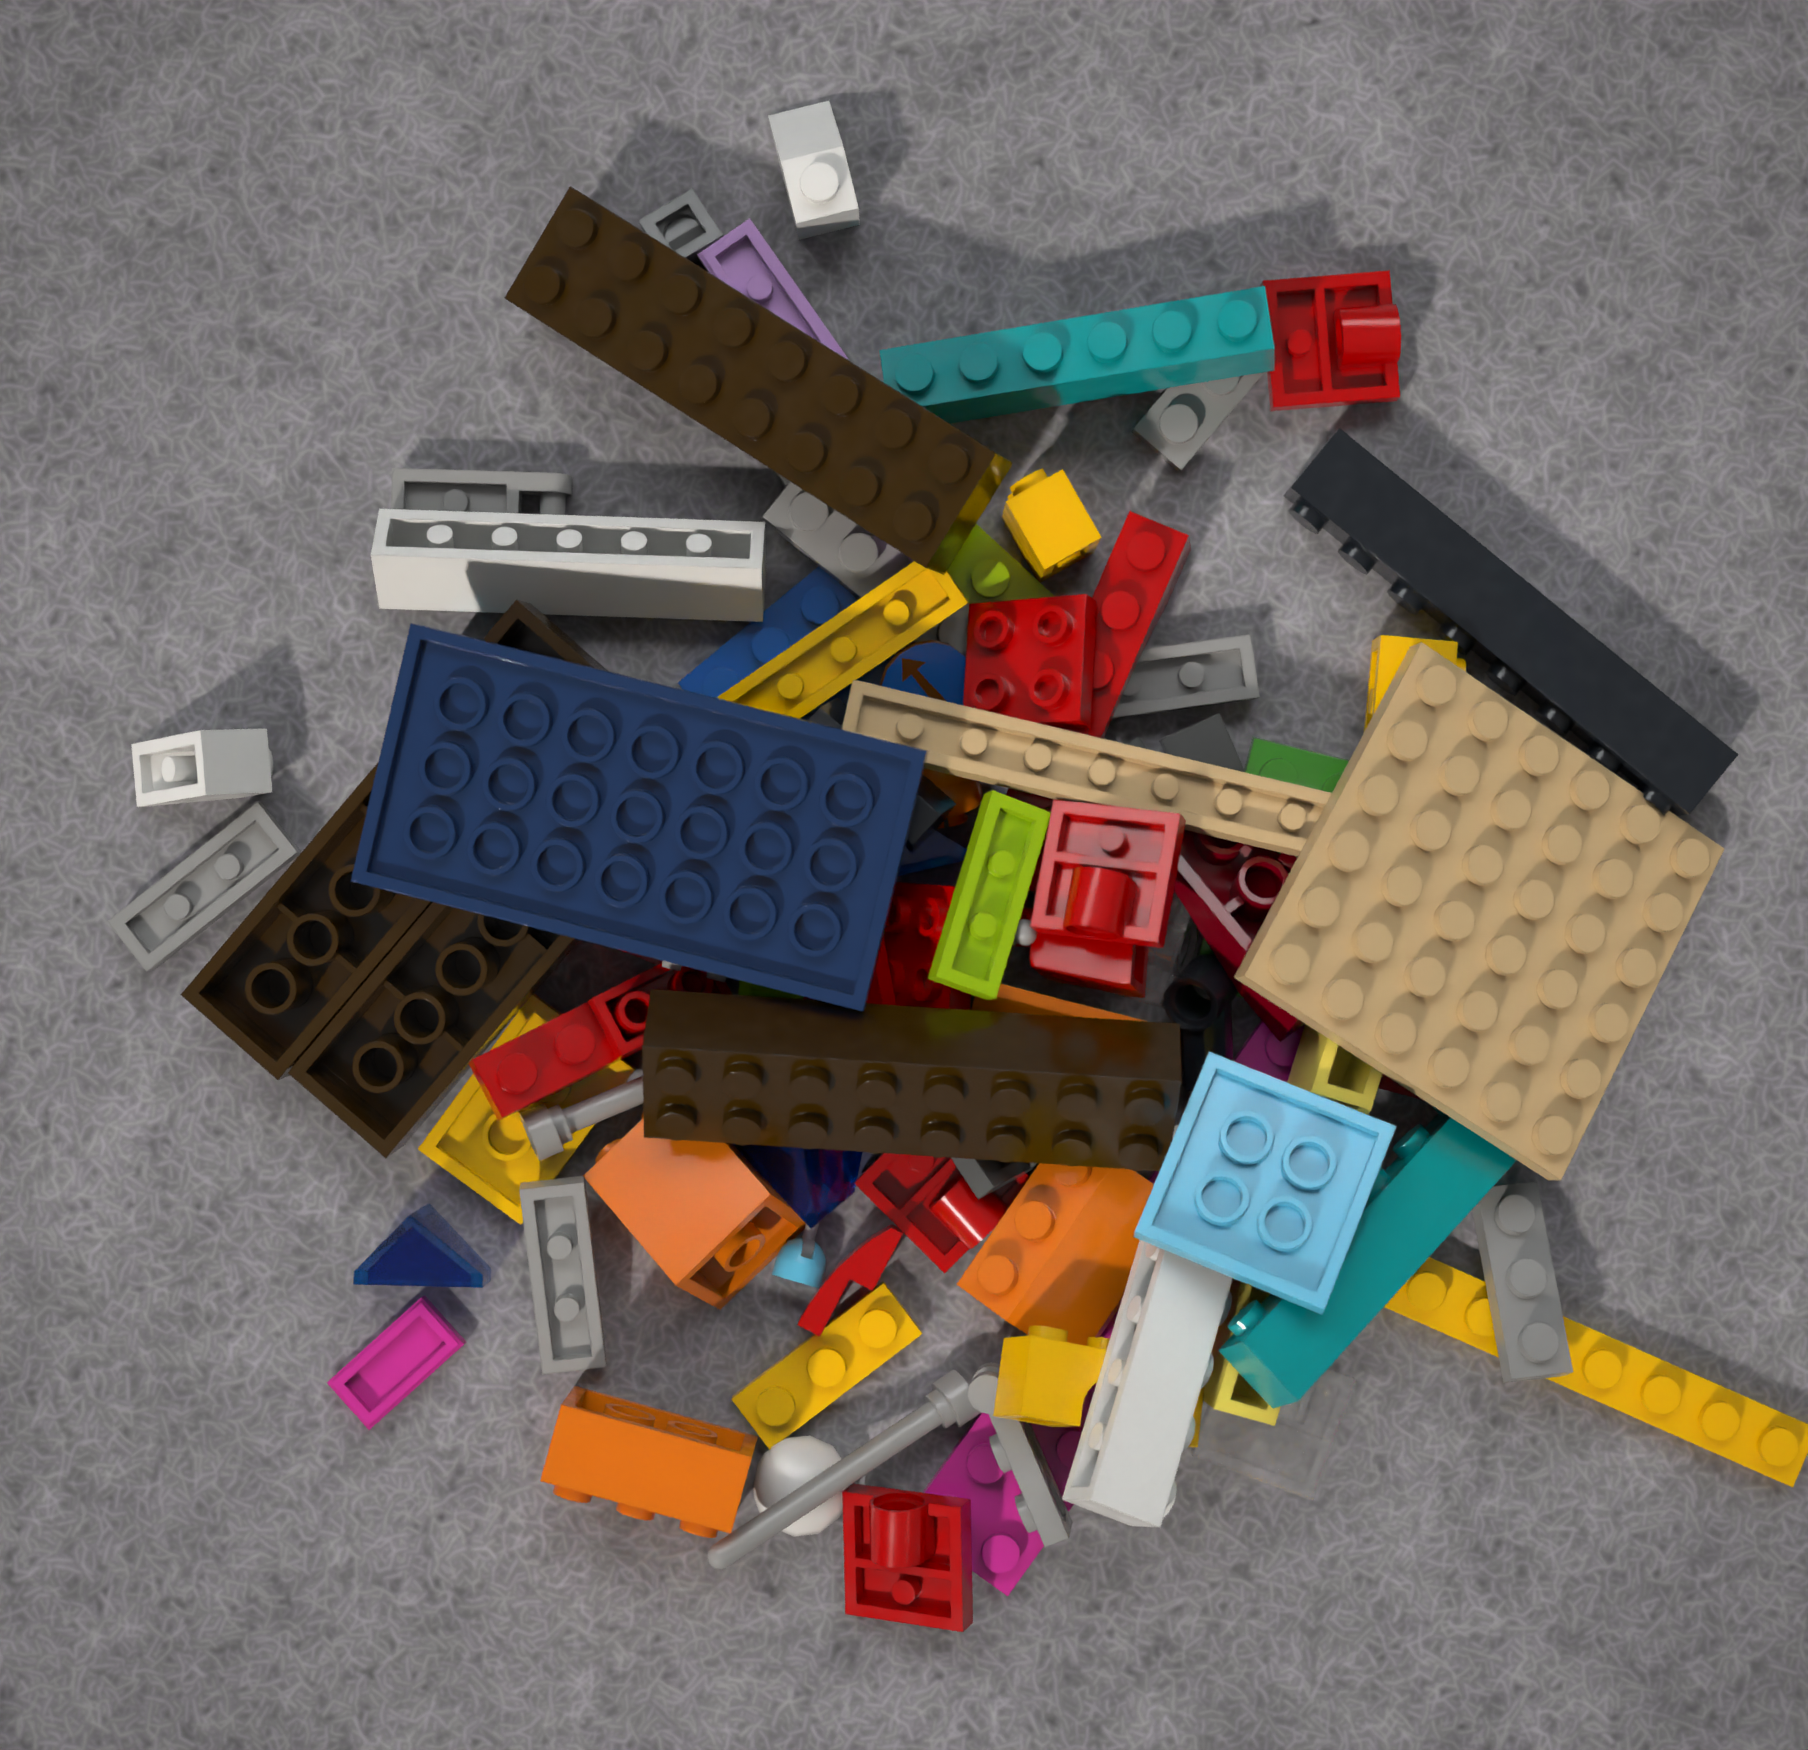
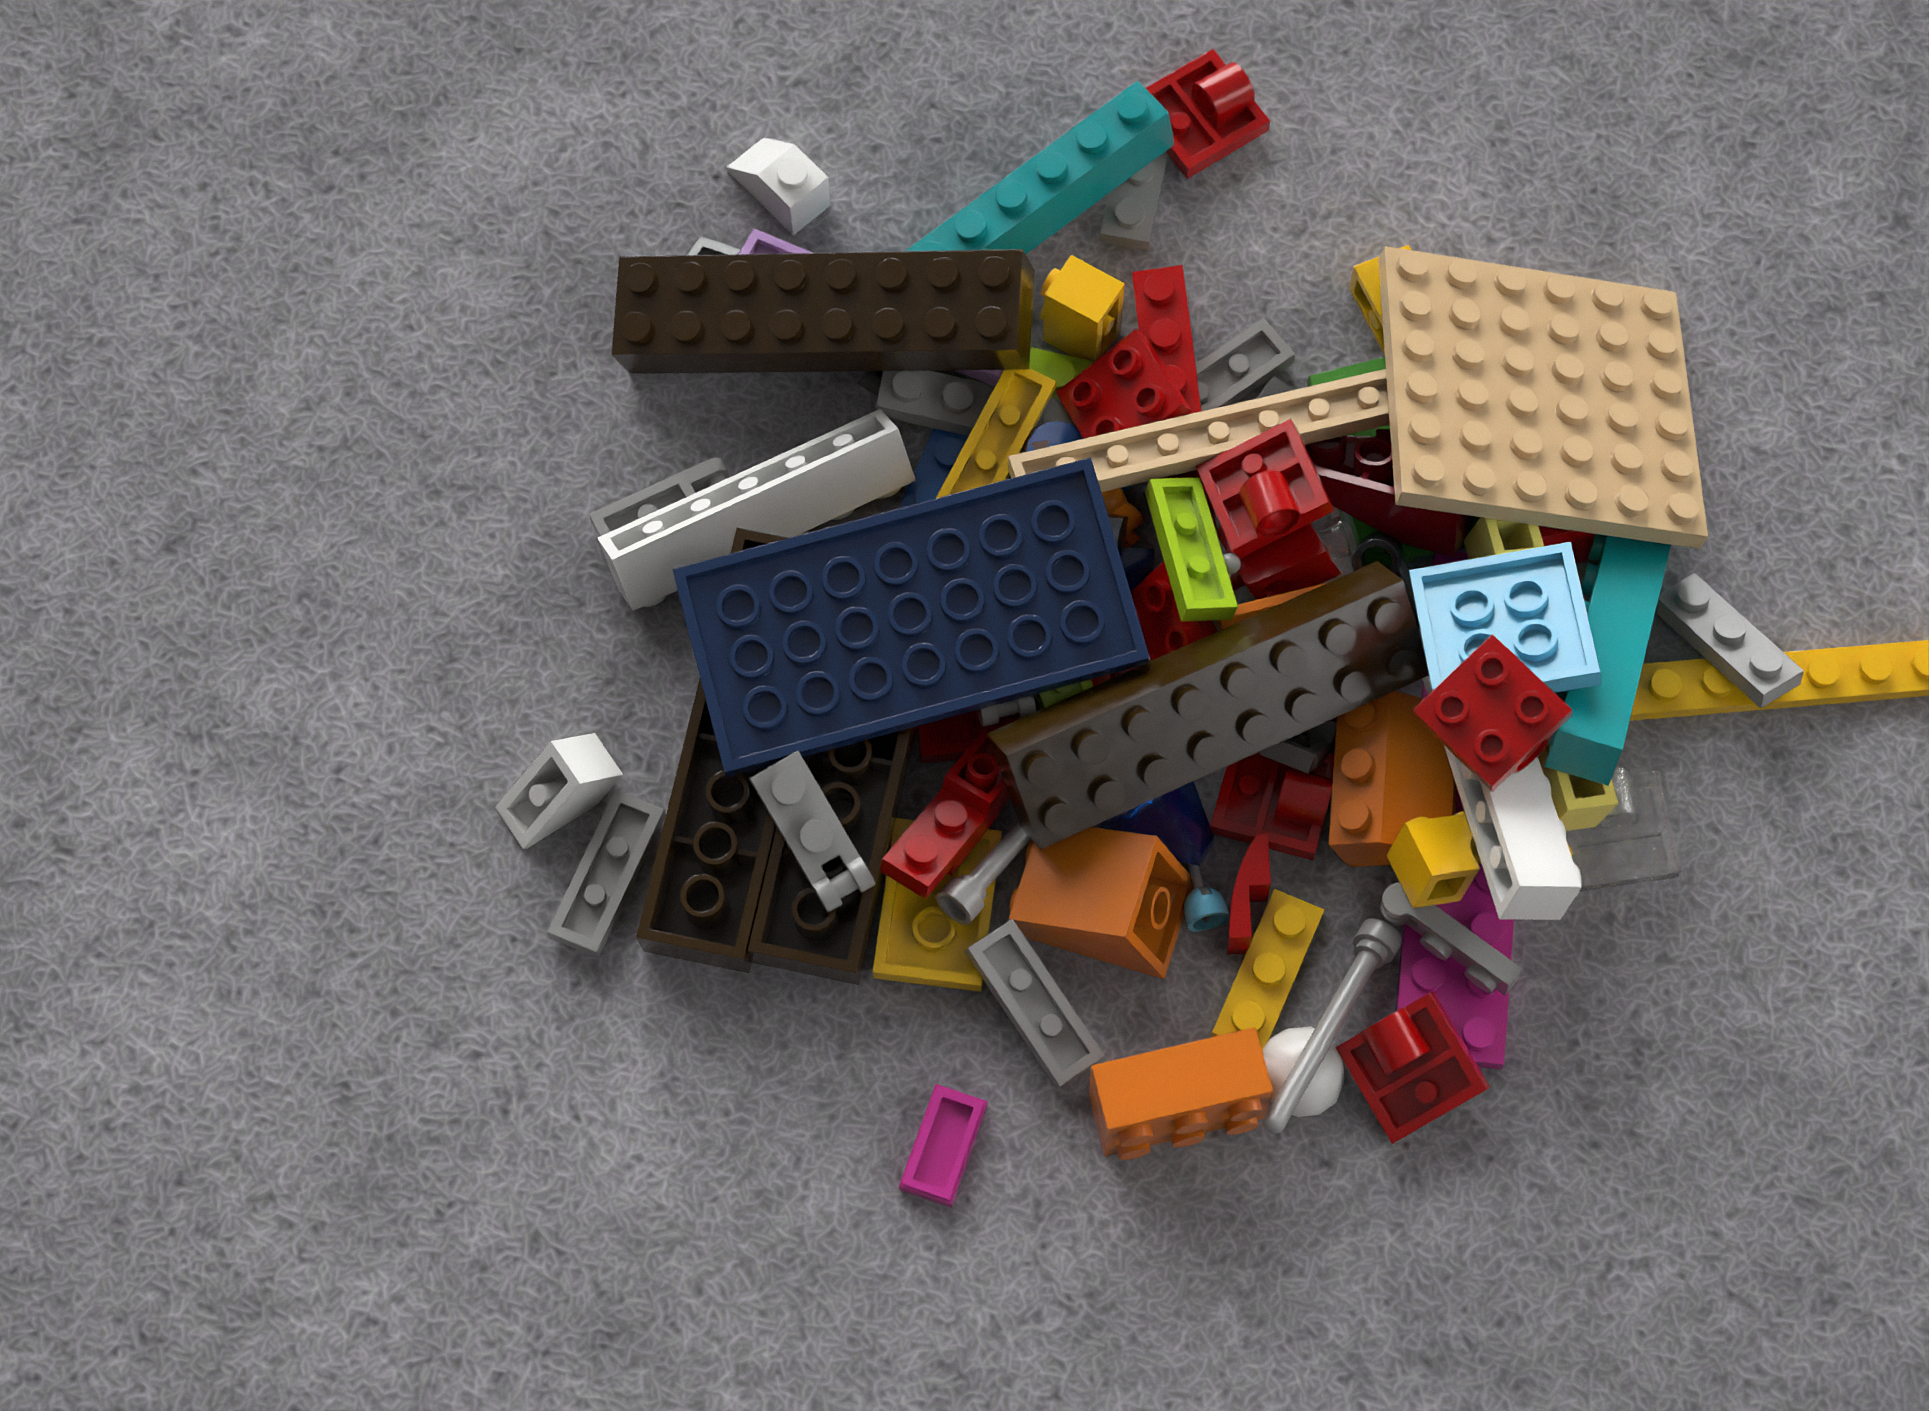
camera: 25 degrees left, 20 degrees down
(410, 992) = (811, 829): none -> light grey plate
(424, 1253) = (921, 1044): clear blue slope -> none
(1182, 1288) = (1493, 713): none -> red plate
(1507, 625) = (1378, 211): black brick -> none

